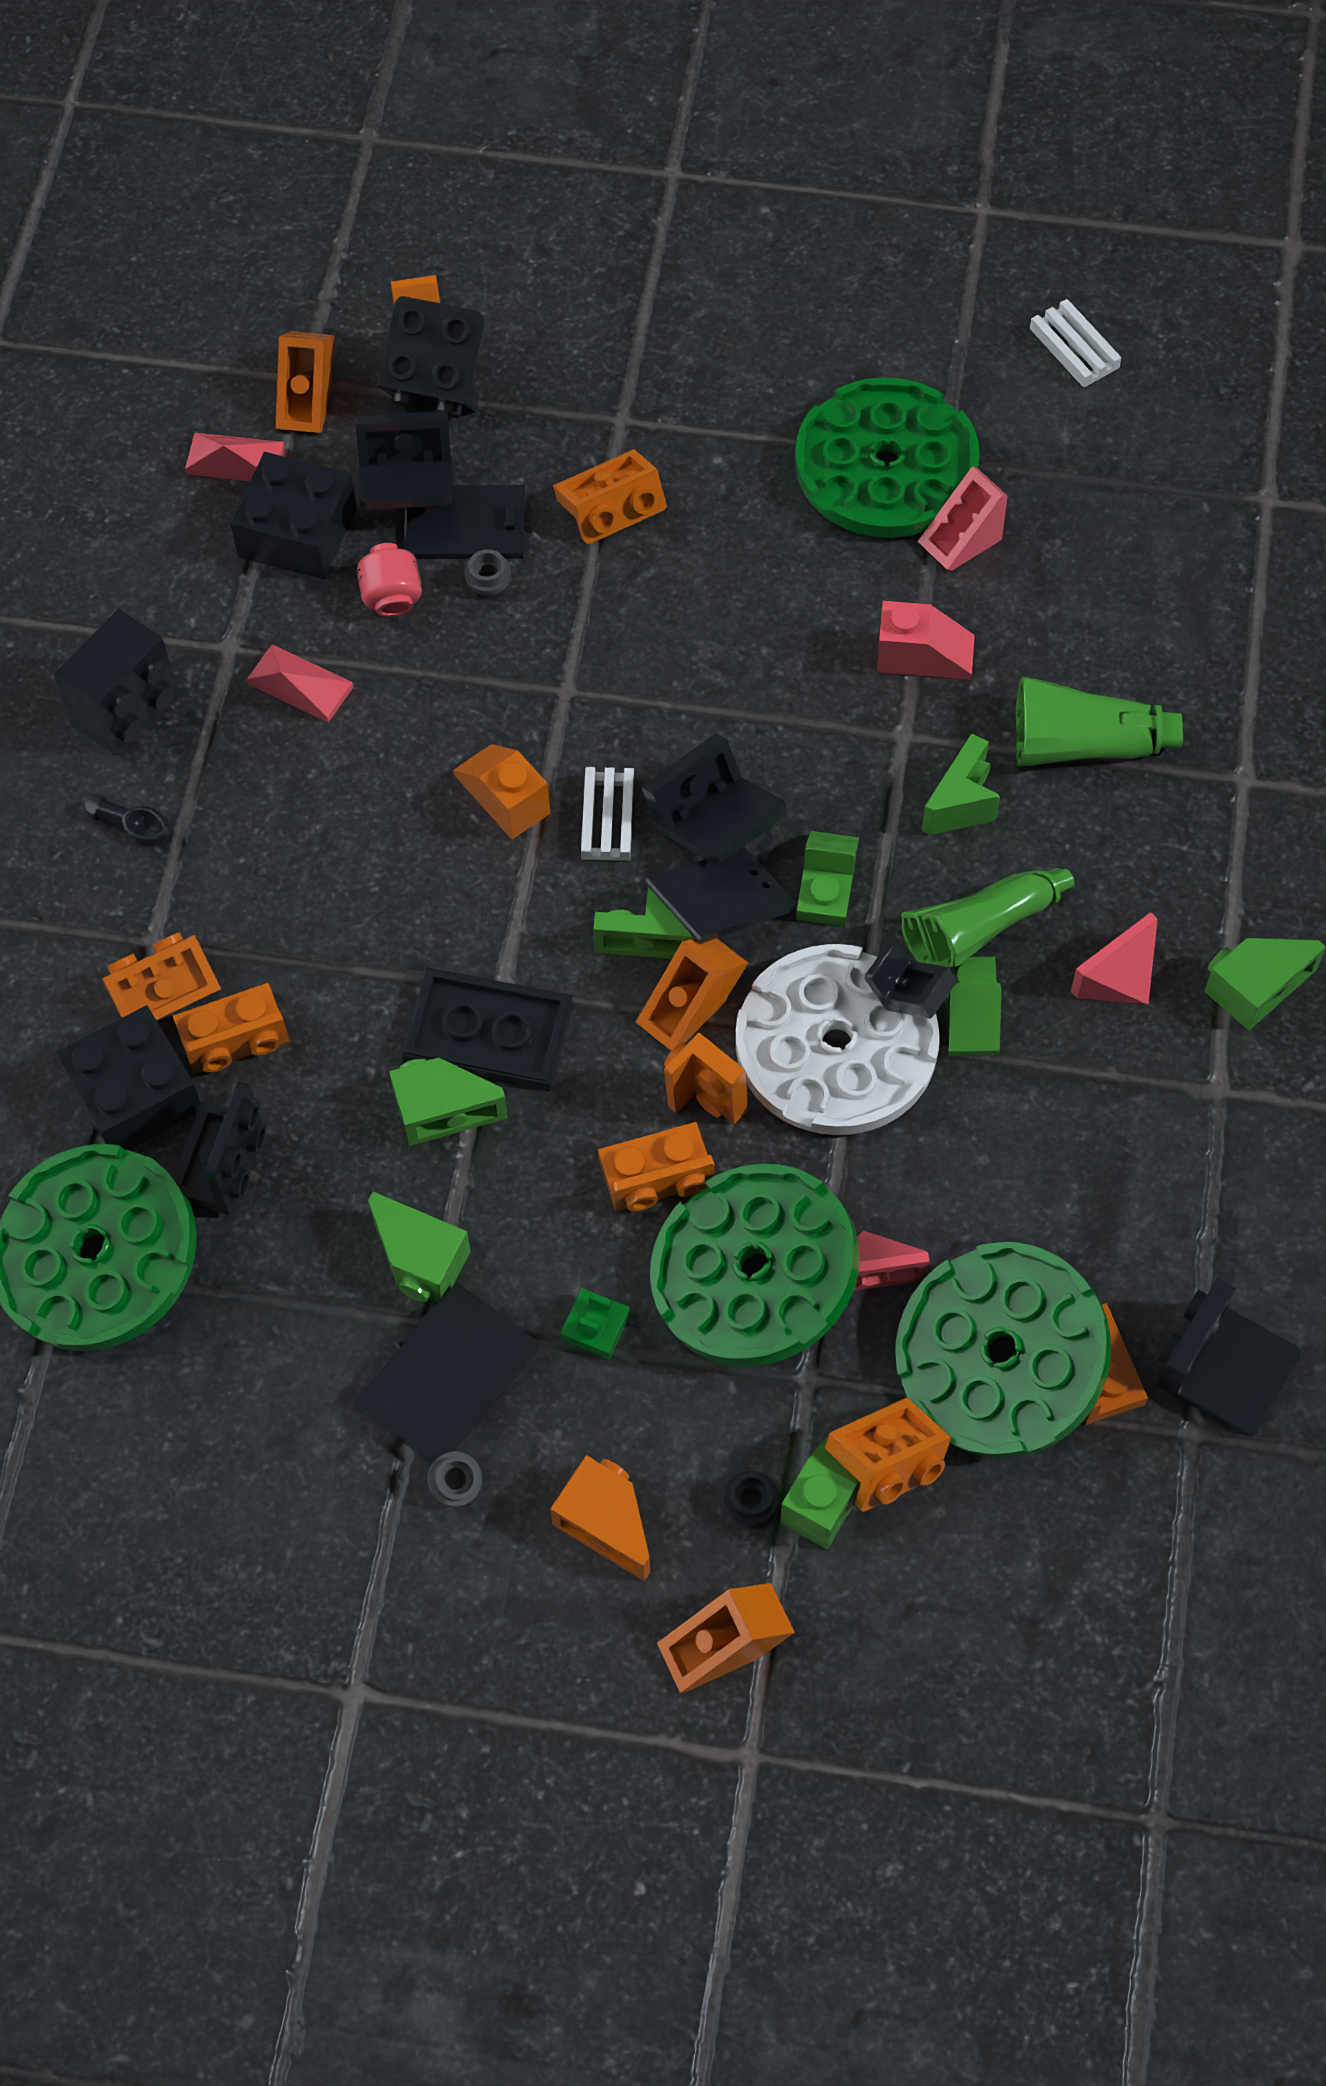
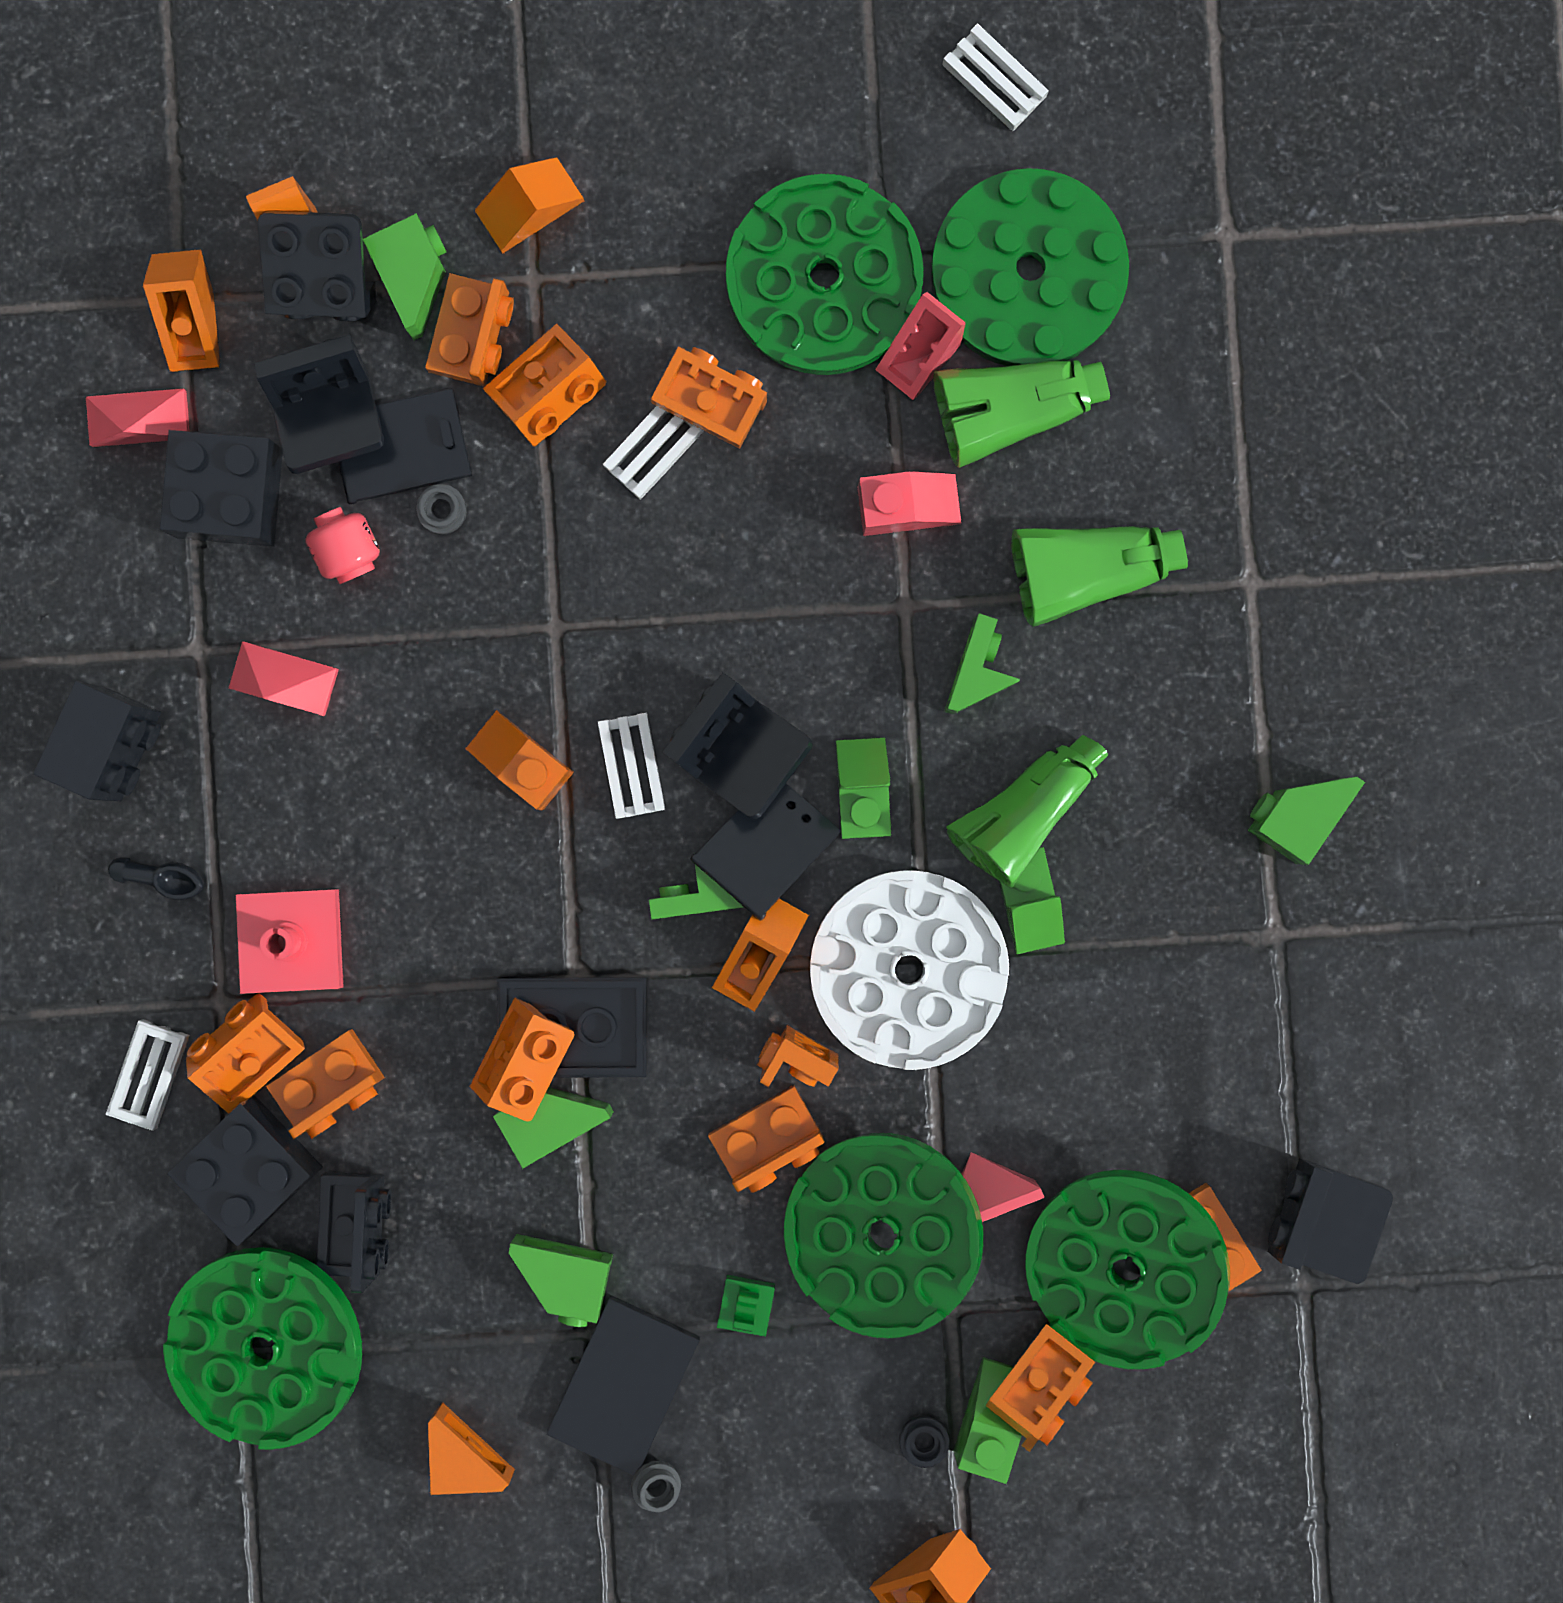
camera: 20 degrees left, 25 degrees up
(75, 997) = (162, 1036): none -> white tile
(236, 898) = (289, 941): none -> coral tile
(256, 1404) = (462, 1459): none -> orange slope
(434, 1026) = (521, 1061): none -> orange bracket
(513, 384) = (410, 269): none -> bright green slope
(554, 442) = (469, 329): none -> orange bracket
(604, 1515) = (799, 1495): orange slope -> none
(631, 357) = (527, 201): none -> orange slope
(692, 556) = (636, 437): none -> white tile
(759, 523) = (710, 396): none -> orange bracket
(907, 984) = (972, 916): black bracket -> none
(1027, 583) = (1006, 404): none -> bright green piece
(1086, 531) = (1060, 227): none -> green plate
(1121, 968) = (1170, 832): coral slope -> none

